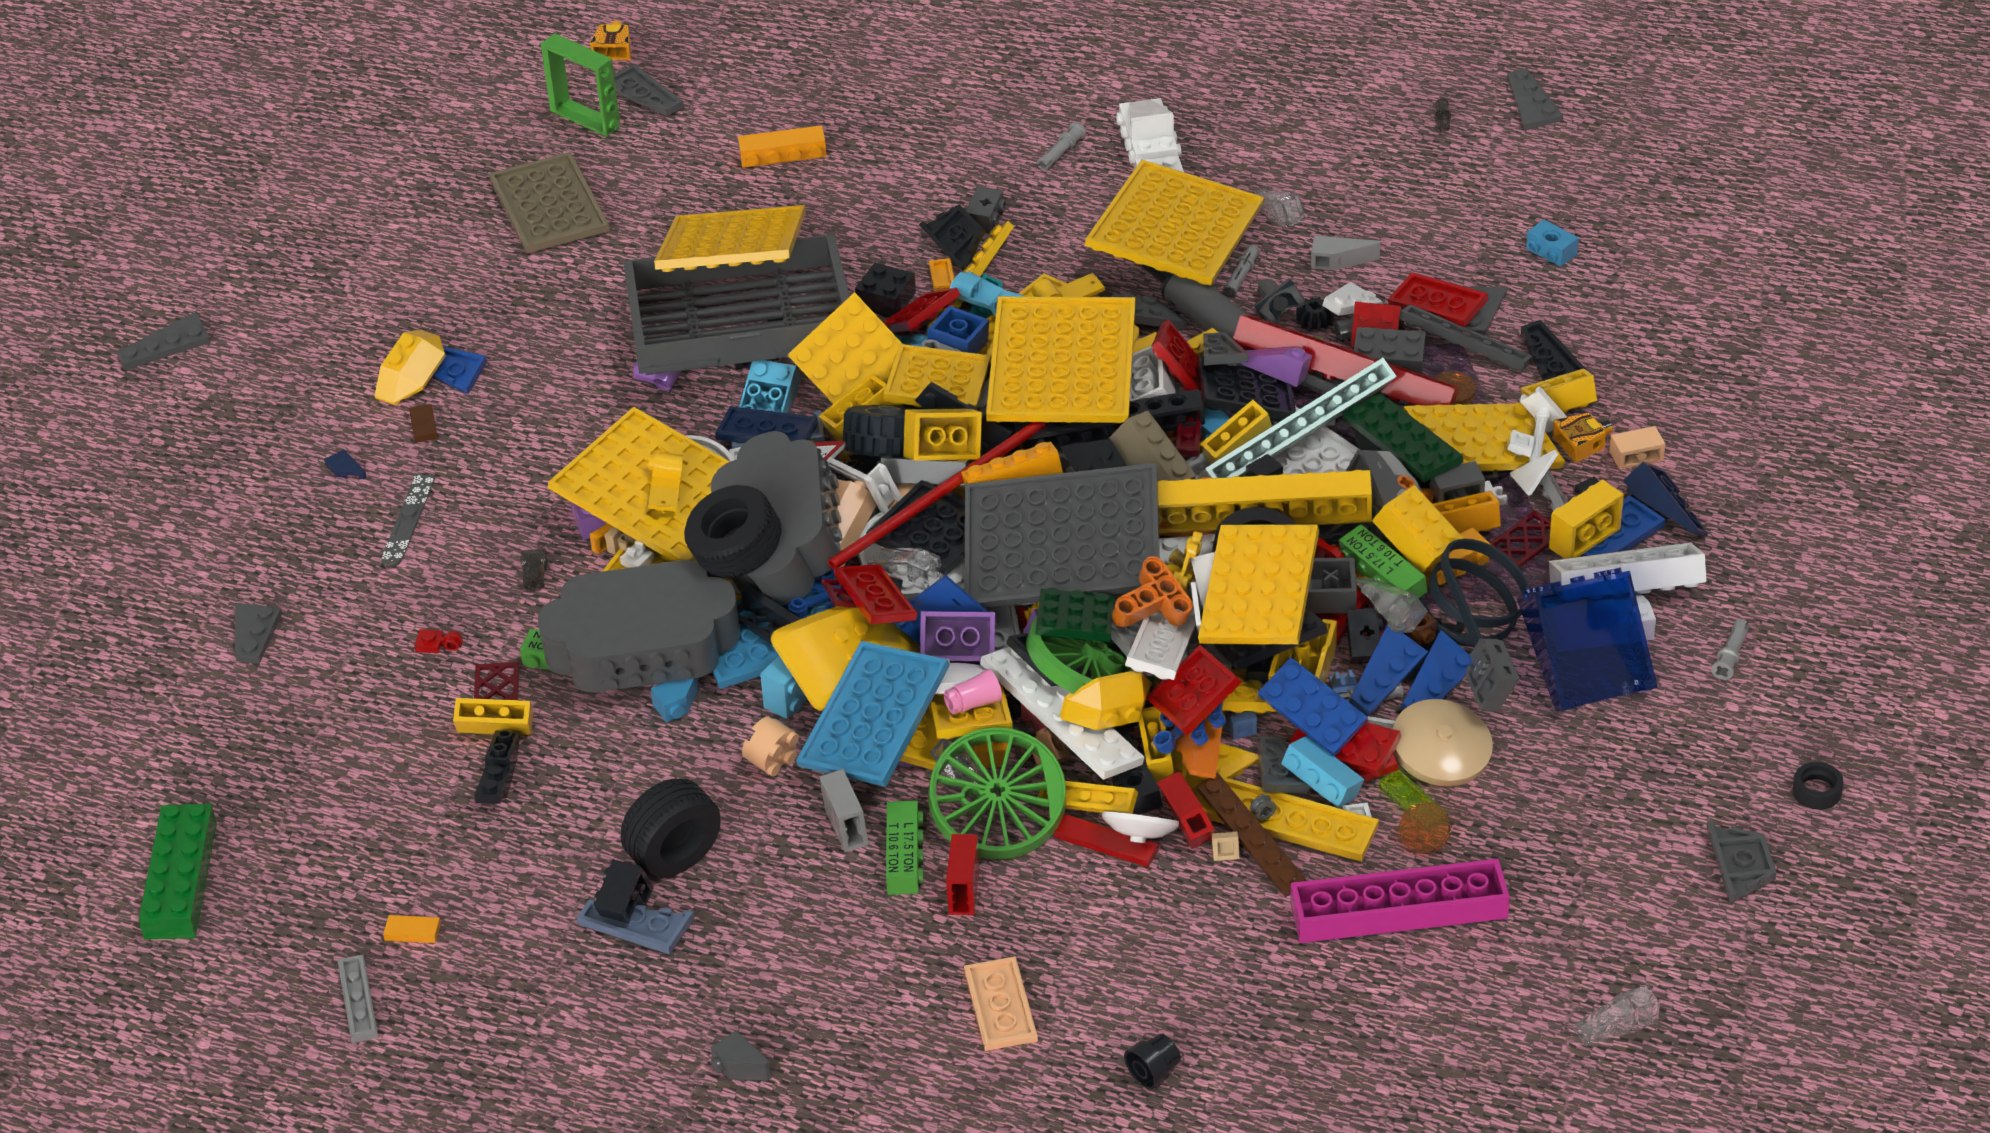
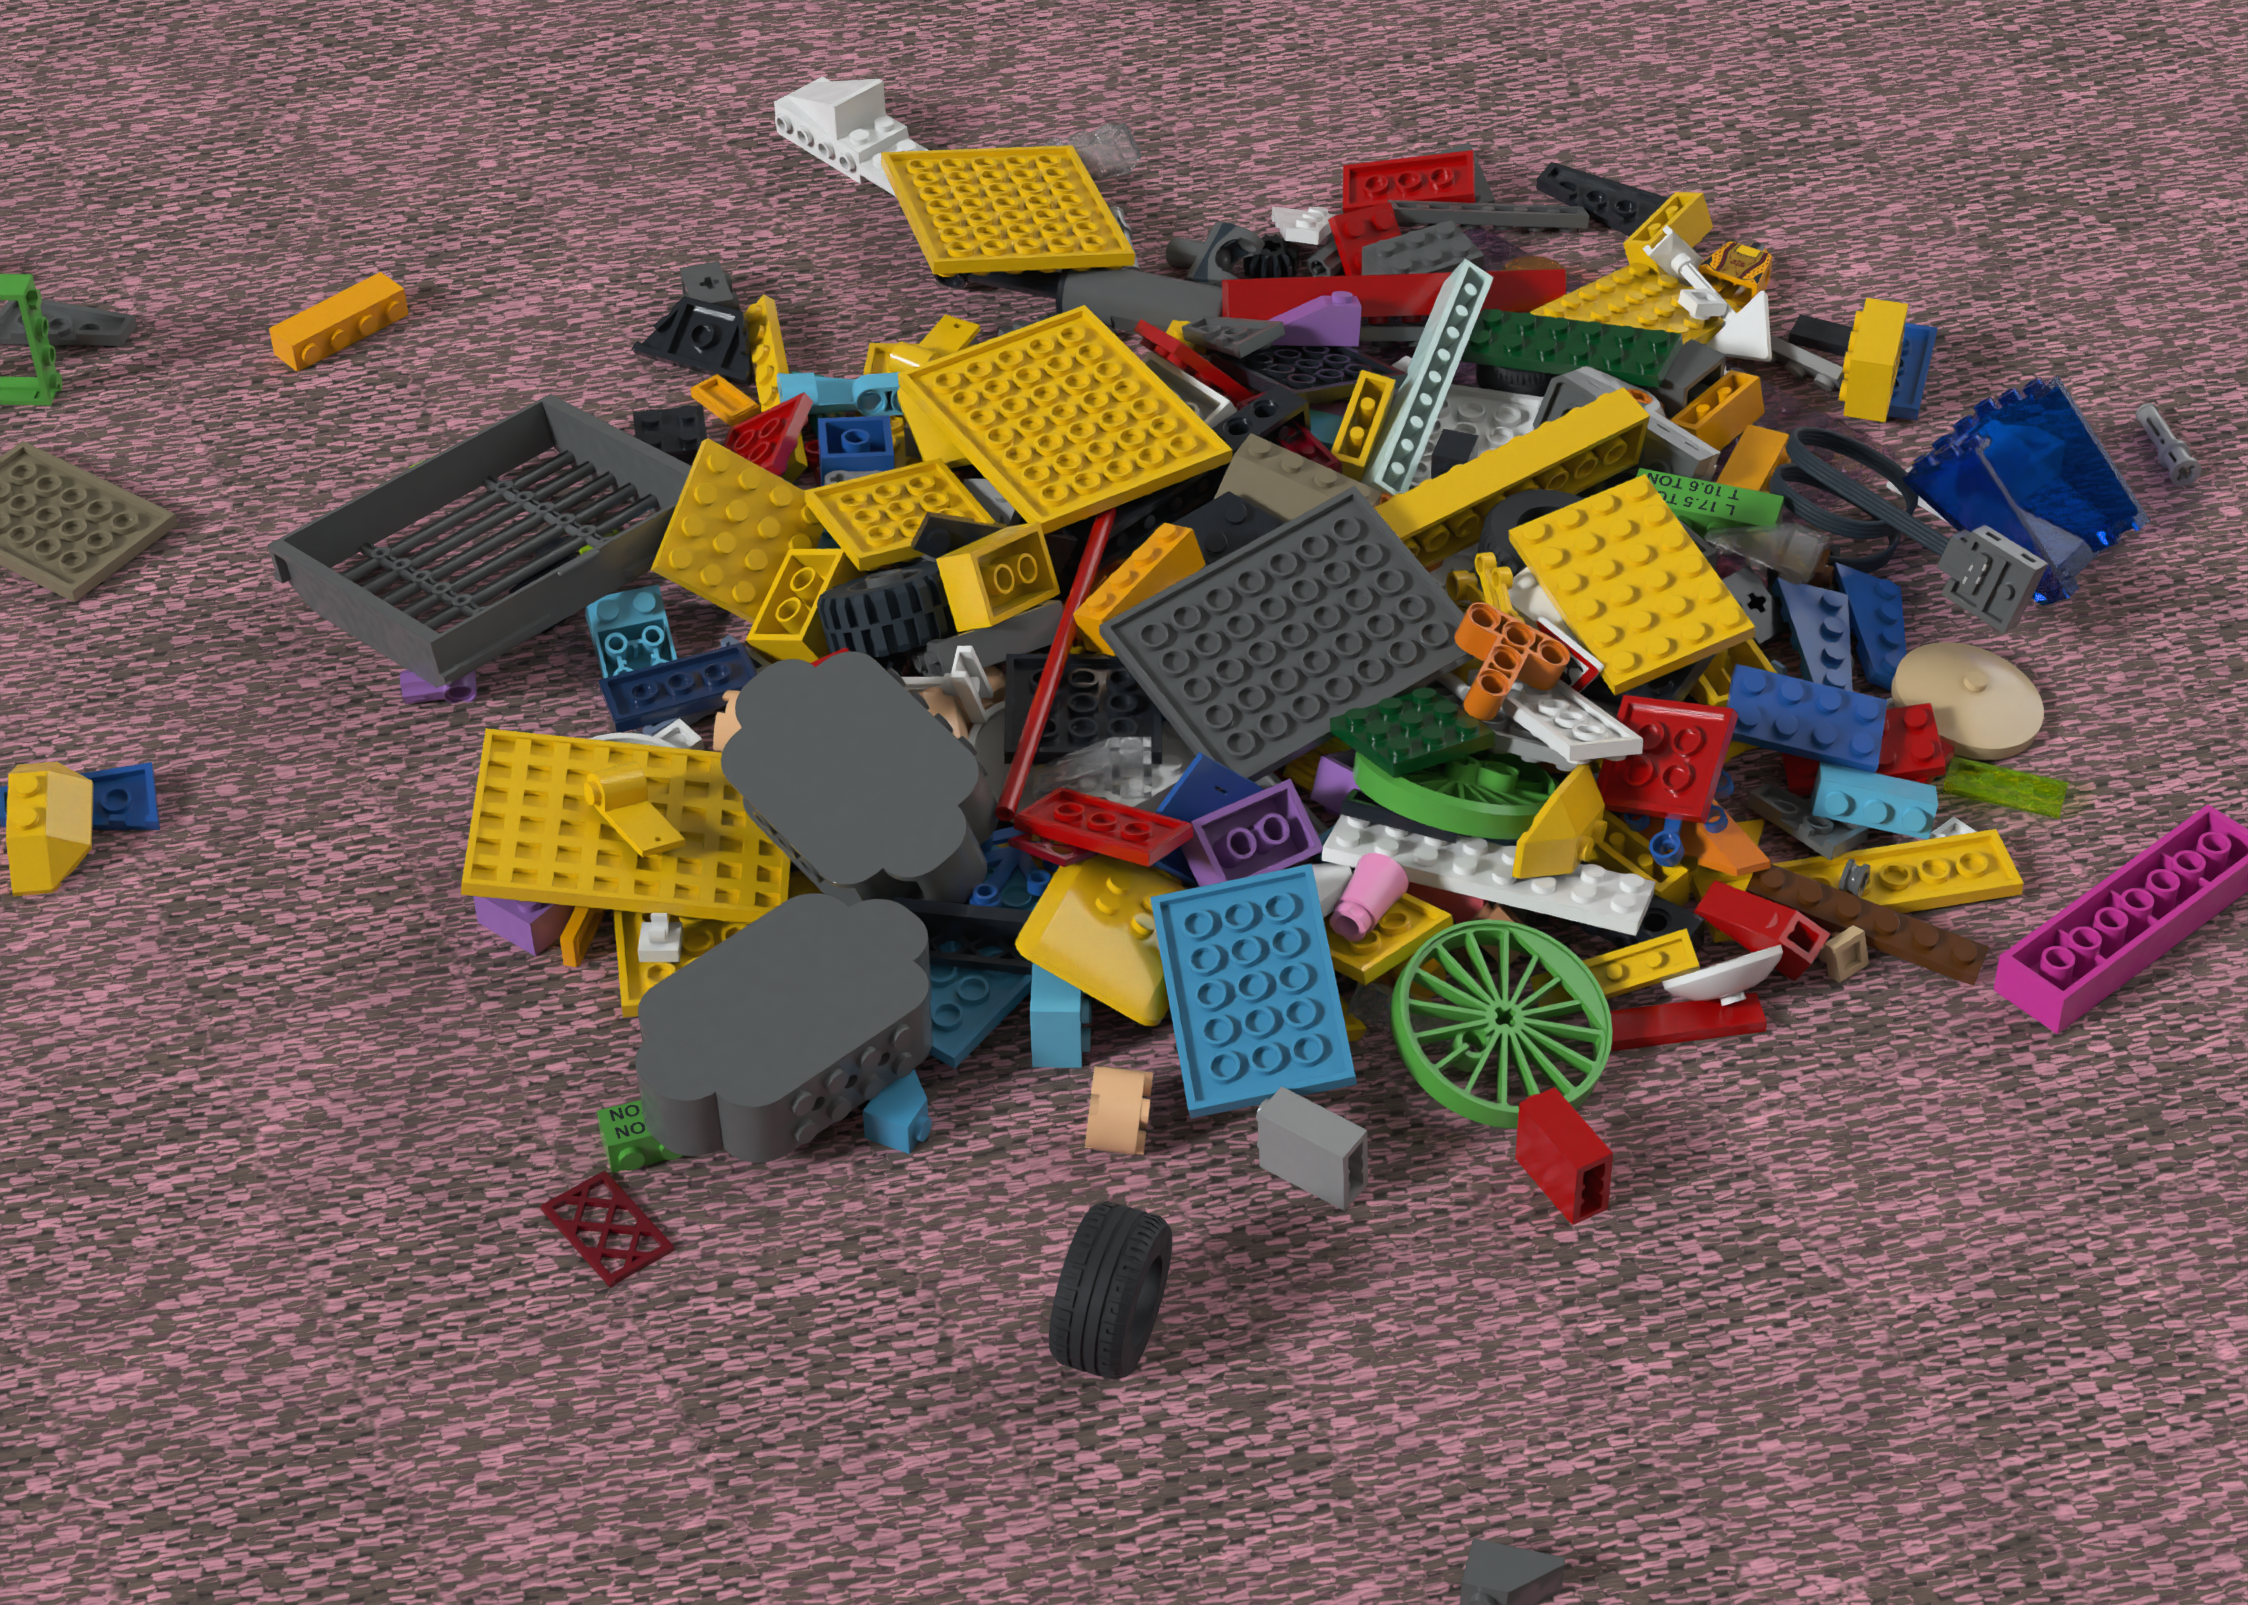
camera: 35 degrees left, 0 degrees up
(254, 630) = (125, 1319): dark grey wing -> none
(343, 464) = (54, 1011): dark blue tile -> none
(407, 520) = (230, 1047): dark grey piece -> none
(423, 423) = (129, 898): reddish brown tile -> none
(432, 640) = (441, 1204): red plate -> none
(492, 715) = (656, 1264): yellow brick -> none
(499, 767) = (728, 1339): black slope -> none
(534, 566) = (504, 1021): clear smoke piece -> none
(617, 540) = (608, 926): tan tile -> none
(622, 890) = (1112, 1422): black brick -> none
(648, 928) = (1176, 1459): sand blue wing -> none
(730, 238) = (409, 453): yellow plate -> none
(745, 548) = (822, 786): black tyre -> none
(903, 848) = (1432, 1163): bright green brick -> none
(1000, 1003) = (1769, 1310): light nougat tile -> none
(1066, 141) = (734, 176): light grey pin -> none
(1152, 1060) = (2060, 1280): black piece -> none
(1338, 253) = (1228, 176): light grey slope -> none
(1416, 528) = (1724, 441): yellow brick -> none
(1425, 827) = (2063, 812): clear orange tile -> none
(1545, 524) = (1807, 393): dark red window -> none
(1552, 243) = (1471, 72): dark azure brick -> none
(1636, 446) = (1816, 261): light nougat brick -> none
(1649, 567) = (1933, 413): white brick -> none
(1658, 490) = (1922, 306): dark blue wedge -> none

